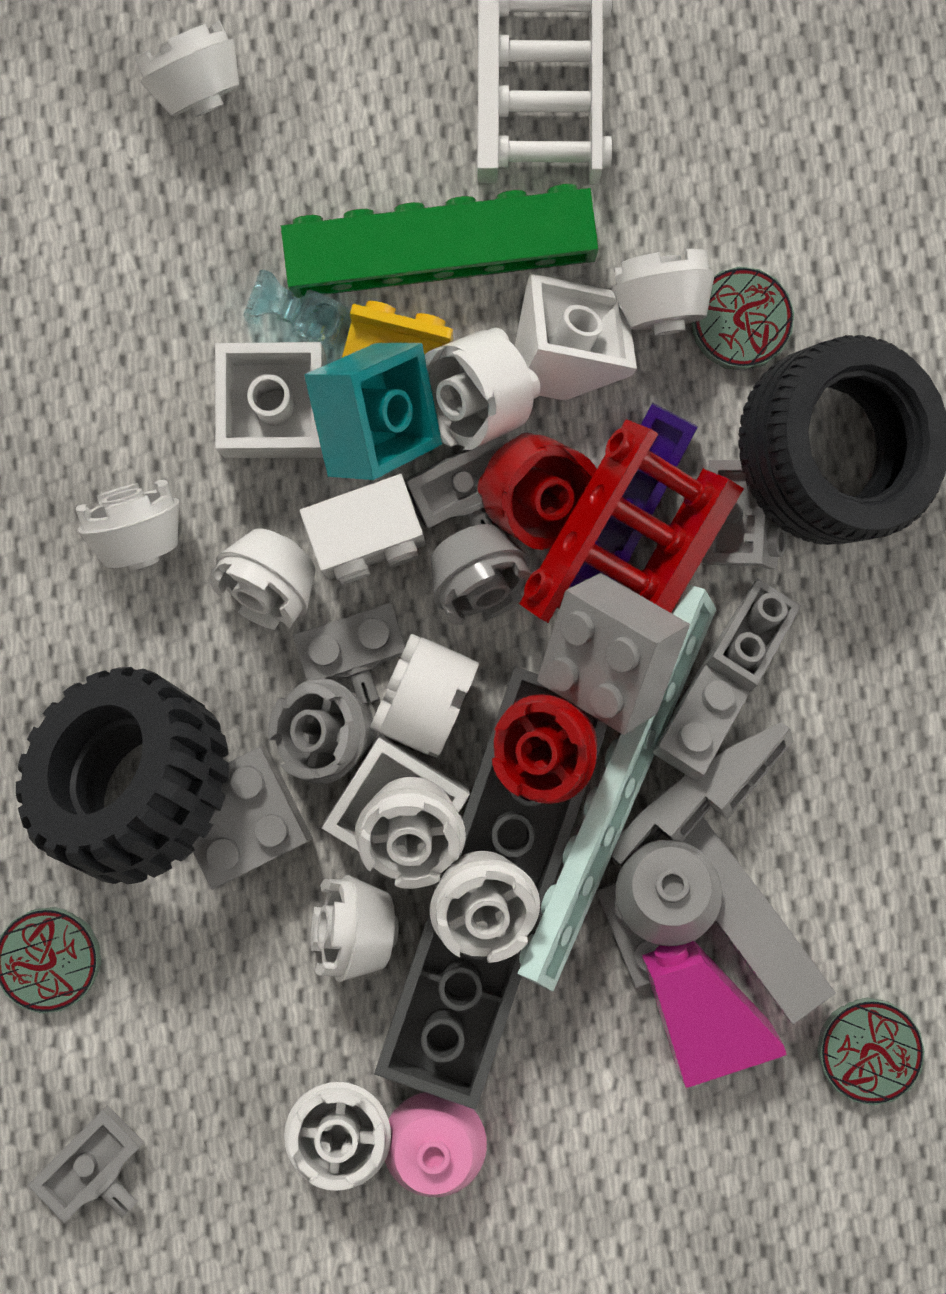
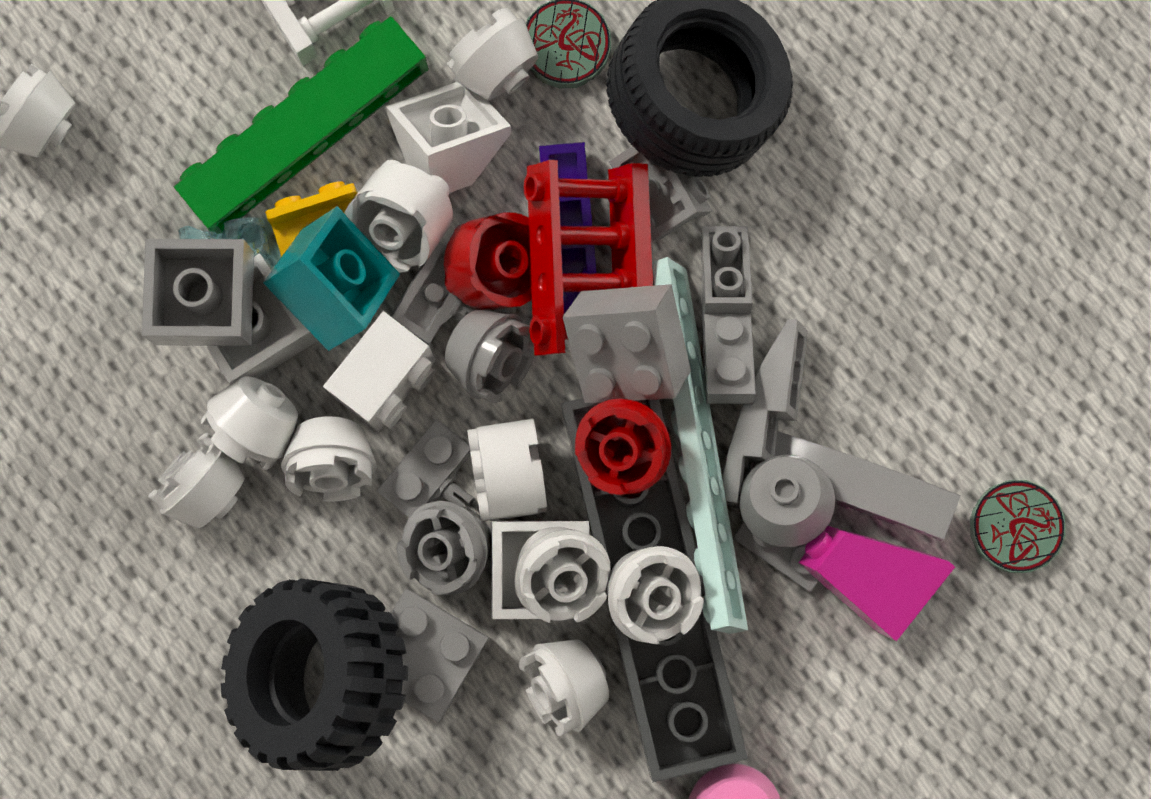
camera: 30 degrees left, 5 degrees down
(214, 497) = (251, 421): none -> white cone
(237, 345) = (198, 292): none -> light grey brick

